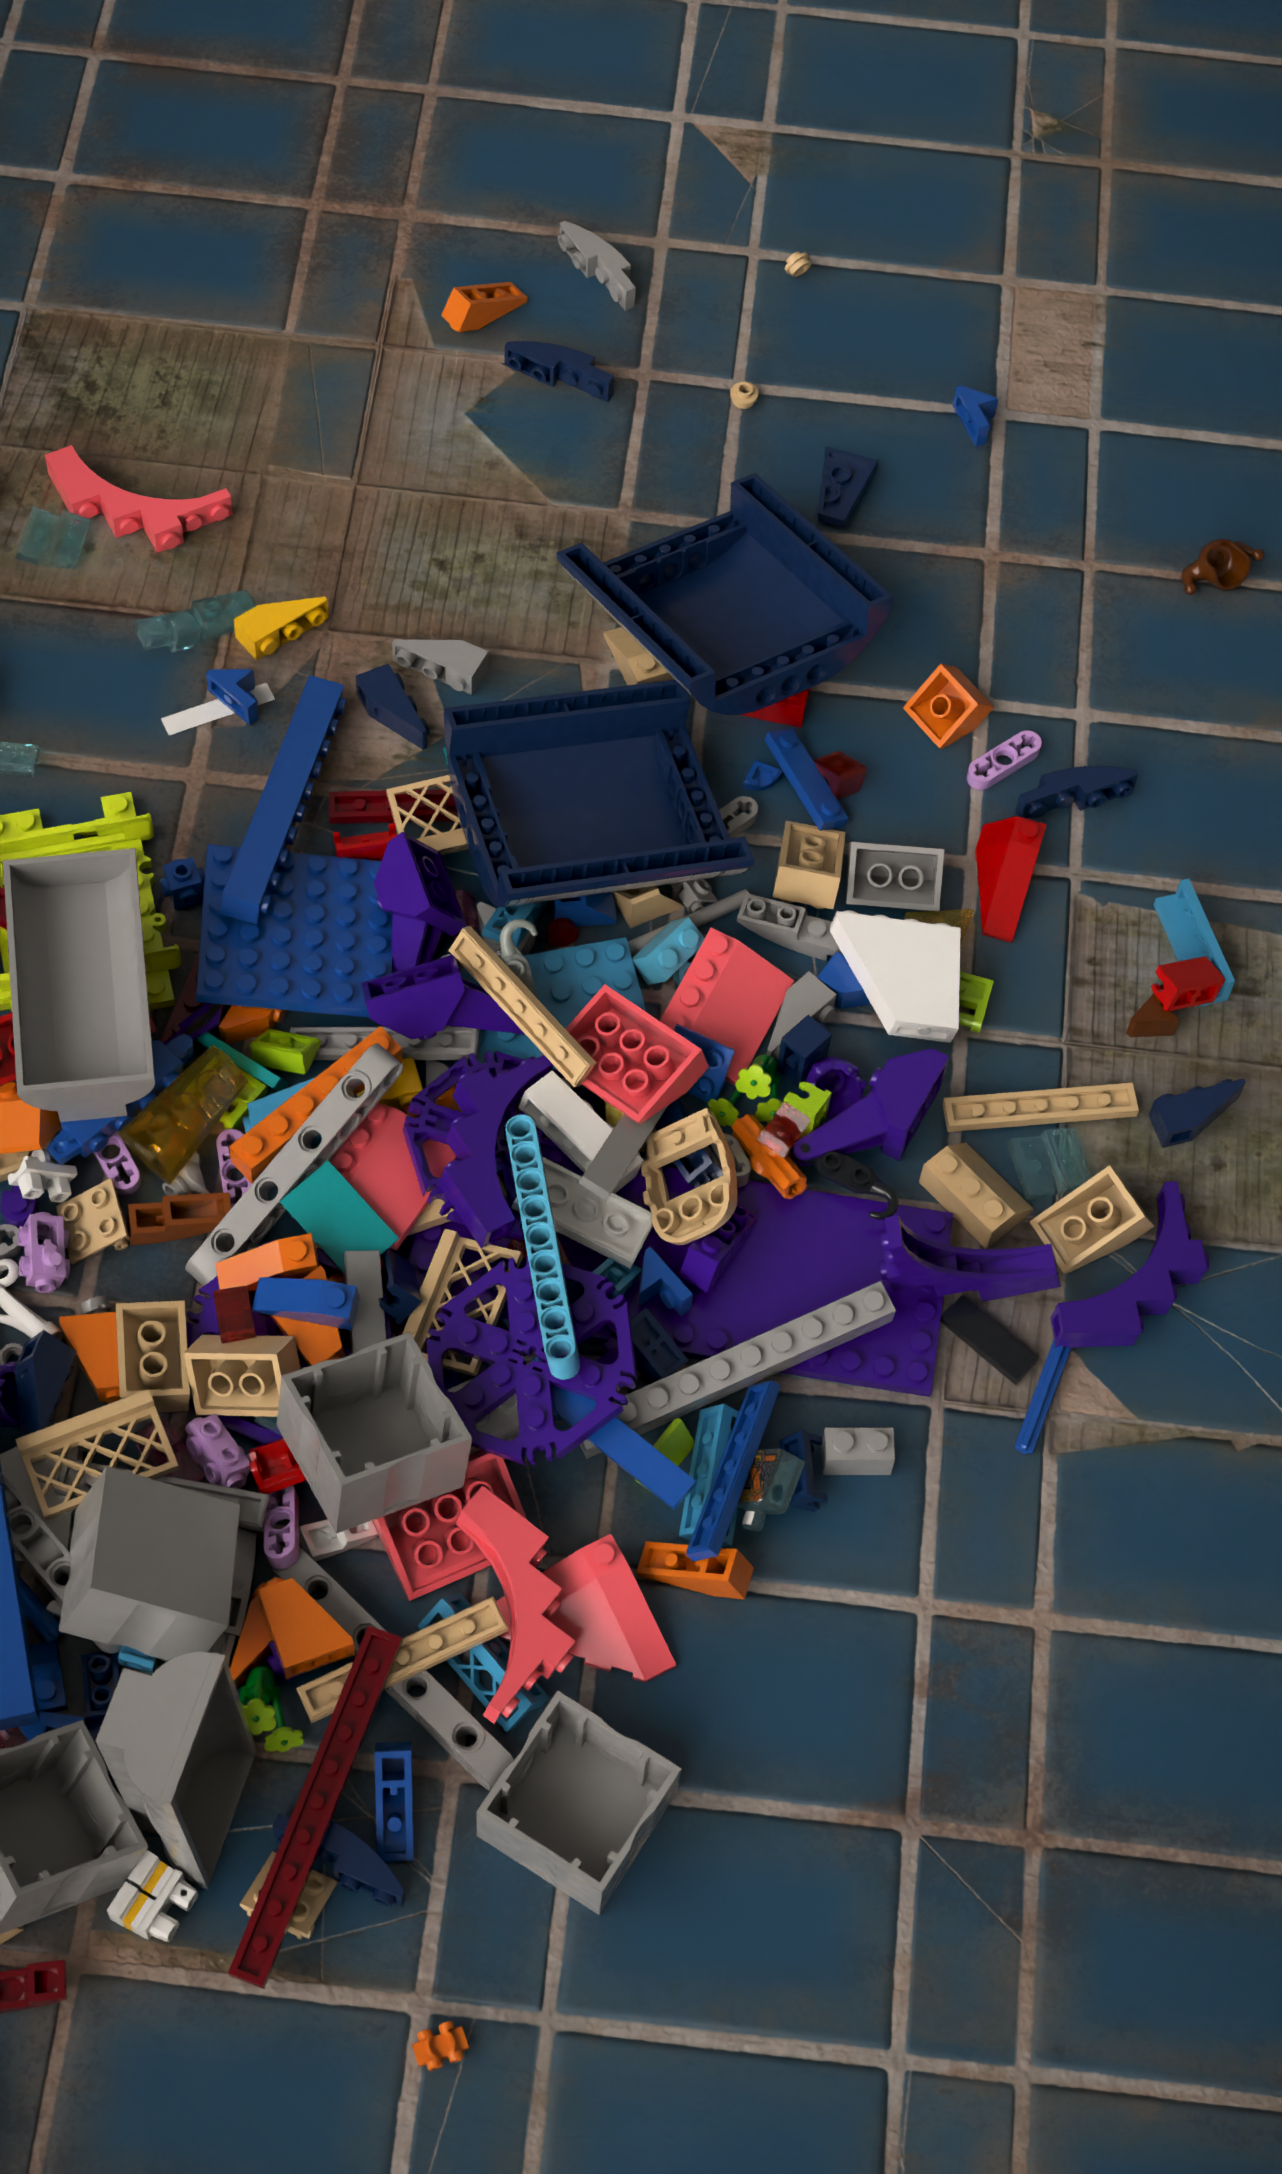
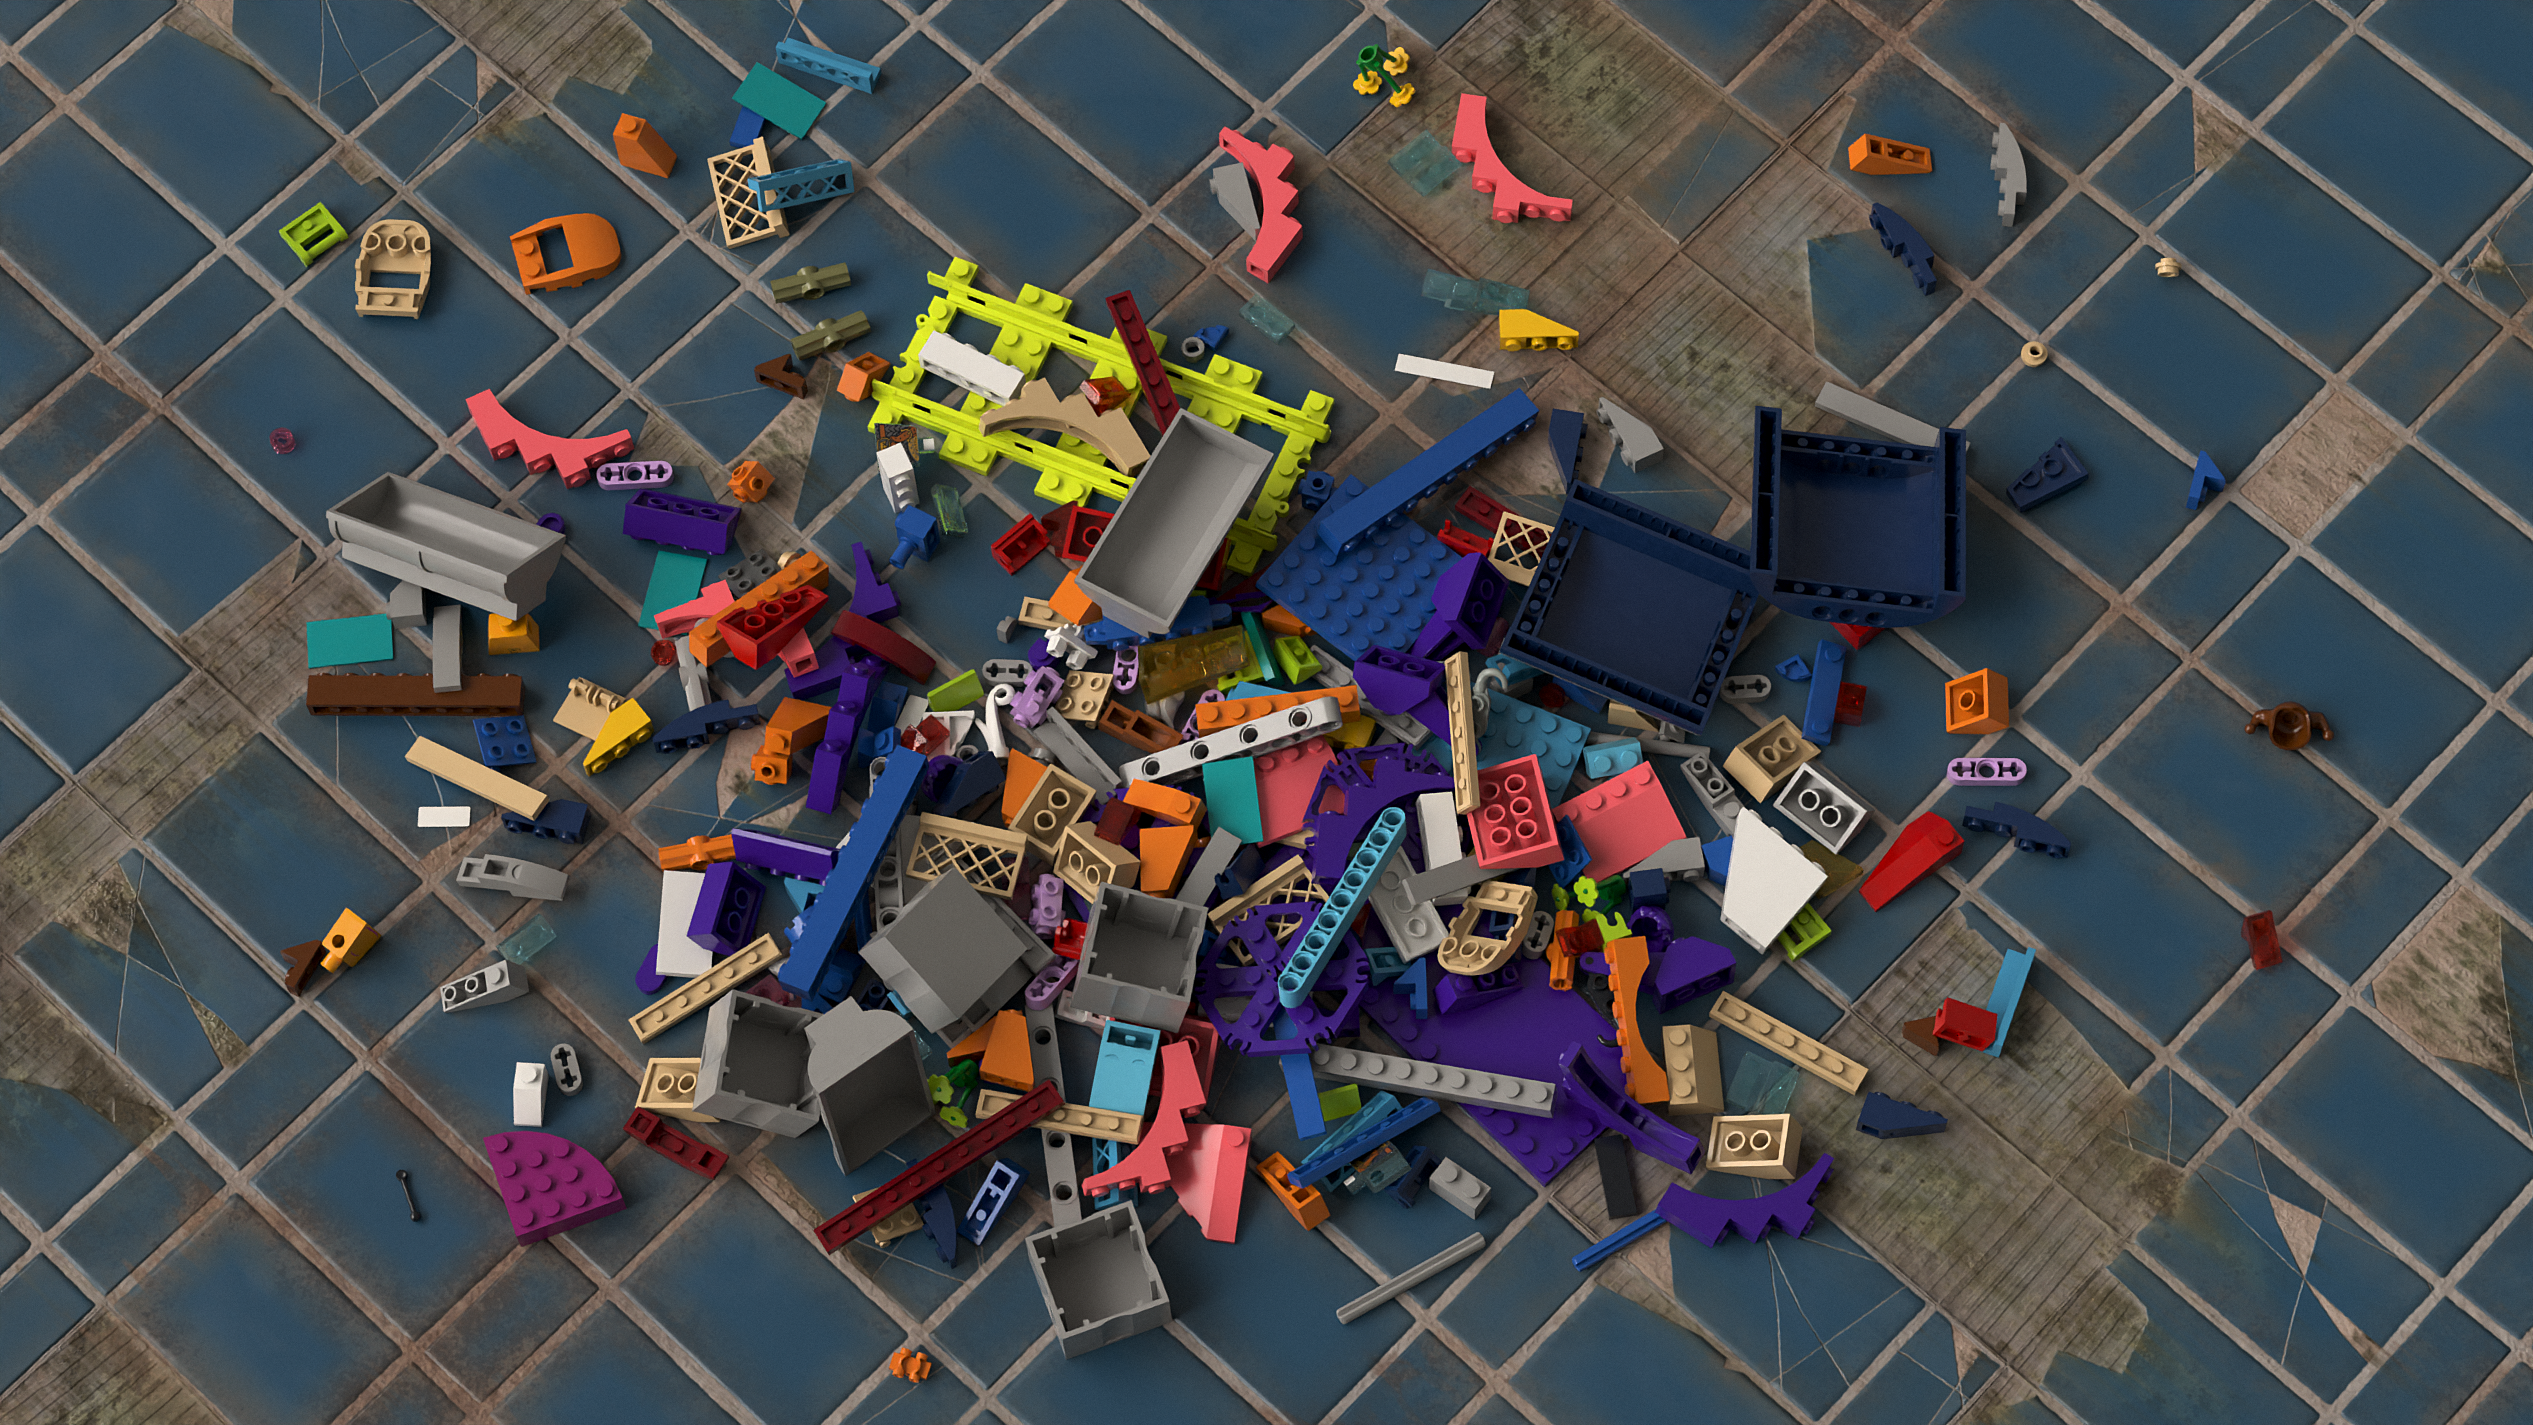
camera: 45 degrees right, 5 degrees up
(130, 1280) = (1077, 756): none -> light grey fence
(149, 1896) = (797, 1165): white hips -> none
(233, 690) = (1462, 364): blue slope -> none
(308, 1301) = (1166, 844): blue slope -> none
(436, 1559) = (1125, 1067): none -> medium azure slope
(650, 521) = (1876, 417): none -> light grey tile
(654, 1349) = (1376, 1025): dark blue hinge -> none
(855, 1124) = (1644, 1077): none -> orange arch
(879, 1576) = (1410, 1278): none -> light grey axle

